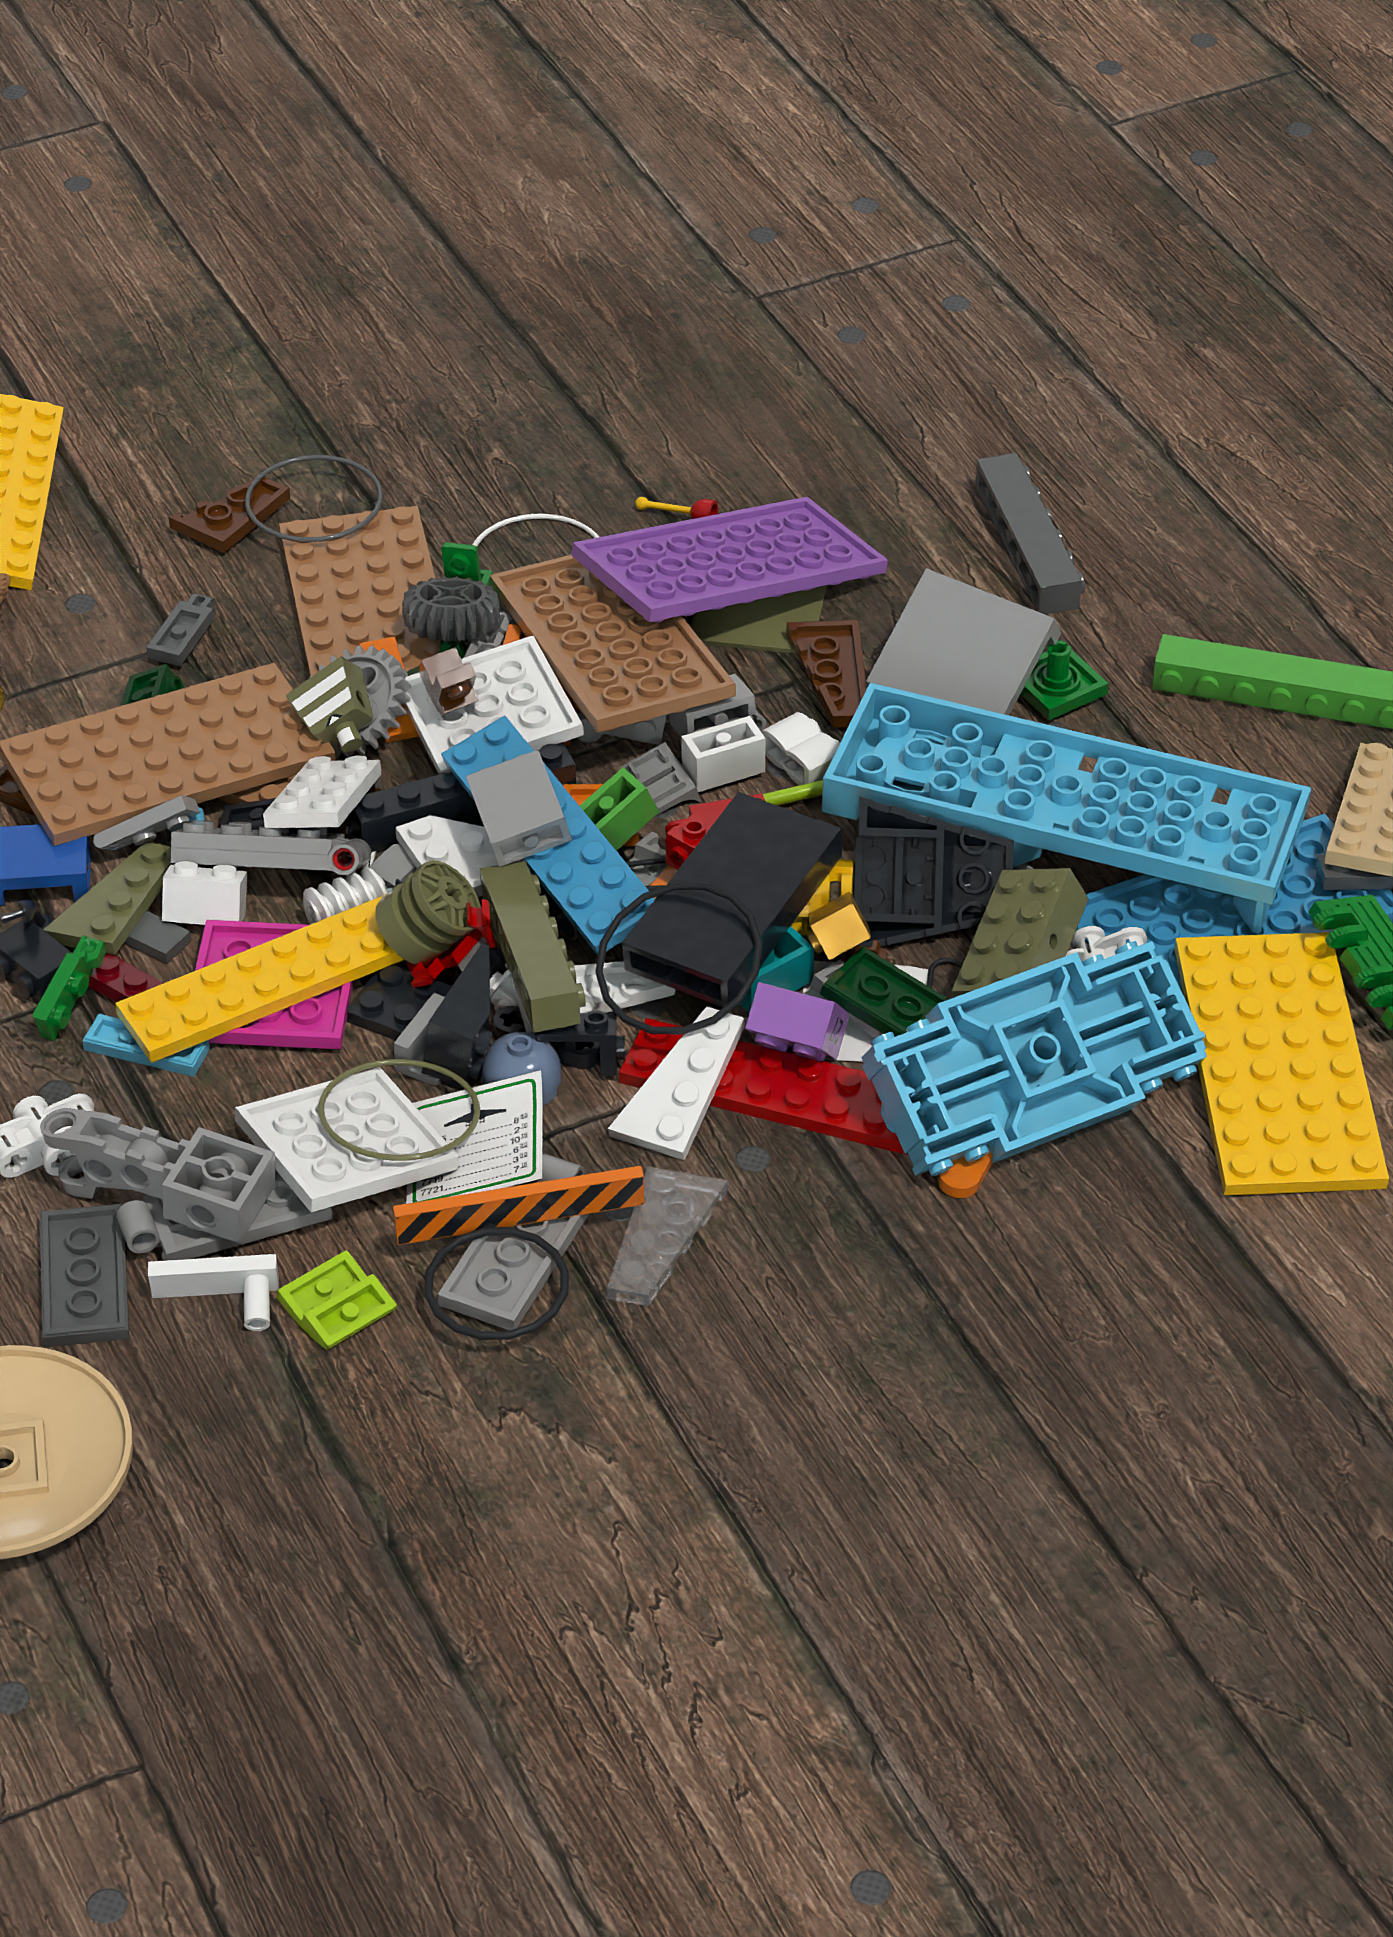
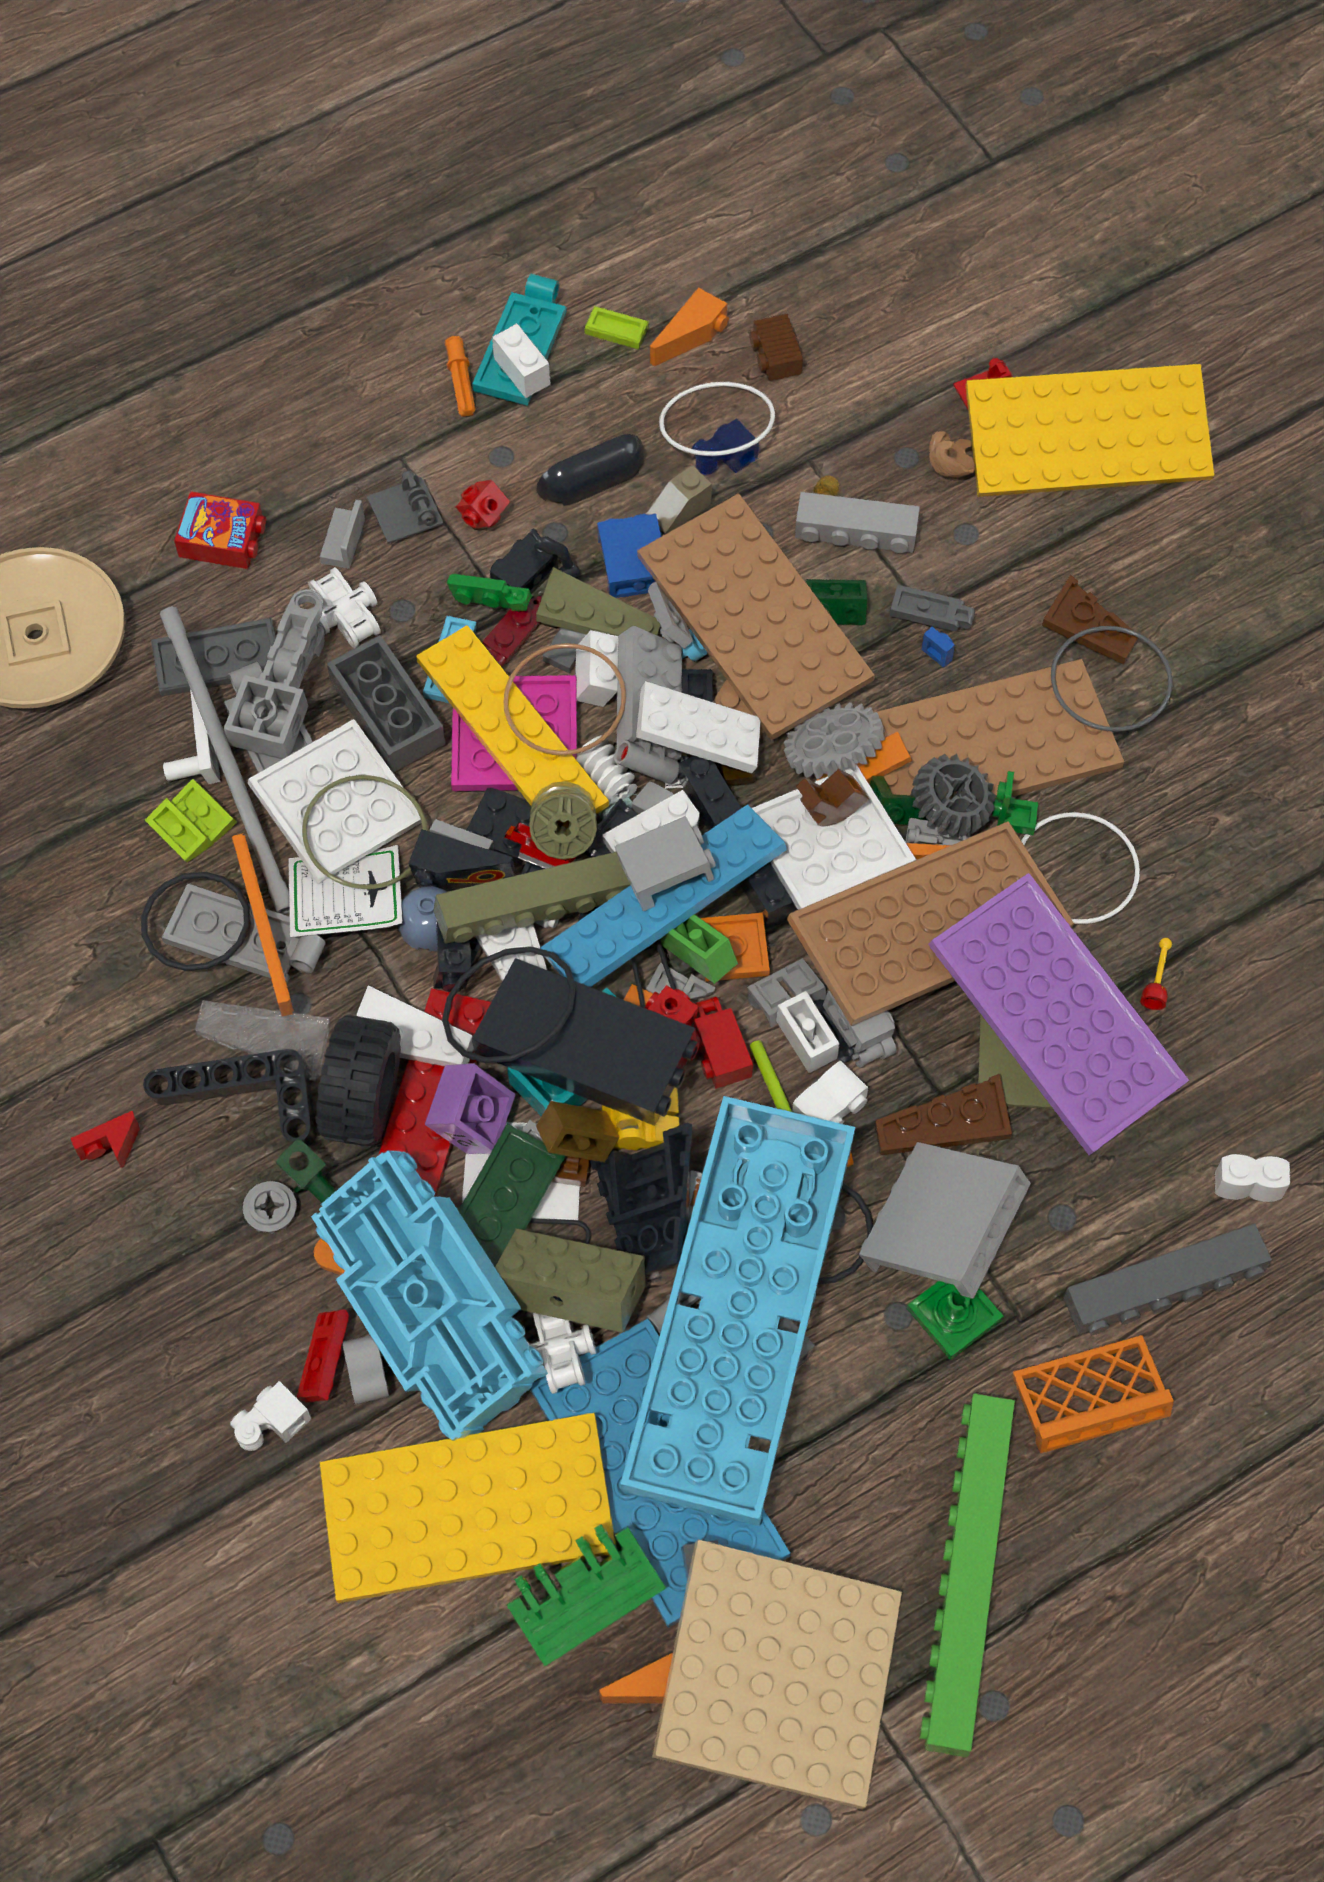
camera: 85 degrees right, 20 degrees up
(48, 674) = (856, 522): none -> light grey brick
(70, 1266) = (177, 634): none -> light grey piece
(208, 1082) = (386, 703): none -> dark grey brick
(238, 625) = (938, 646): none -> blue plate
(314, 941) = (578, 750): none -> medium nougat piece
(334, 704) = (805, 721): olive torso -> none
(480, 919) = (551, 852): red hand -> none
(726, 1197) = (243, 1083): none -> black beam
(774, 1062) = (358, 1080): none -> black tyre
(797, 1374) = (114, 1134): none -> red slope
(867, 1177) = (311, 1176): none -> dark green bracket
(911, 1221) = (258, 1198): none -> light grey gear
(921, 464) = (1259, 1179): none -> white brick
(1096, 1180) = (323, 1356): none -> red hinge
(1111, 1144) = (365, 1369): none -> light grey axle
(1167, 1224) = (274, 1410): none -> white brick
(1171, 589) = (1101, 1420): none -> orange fence

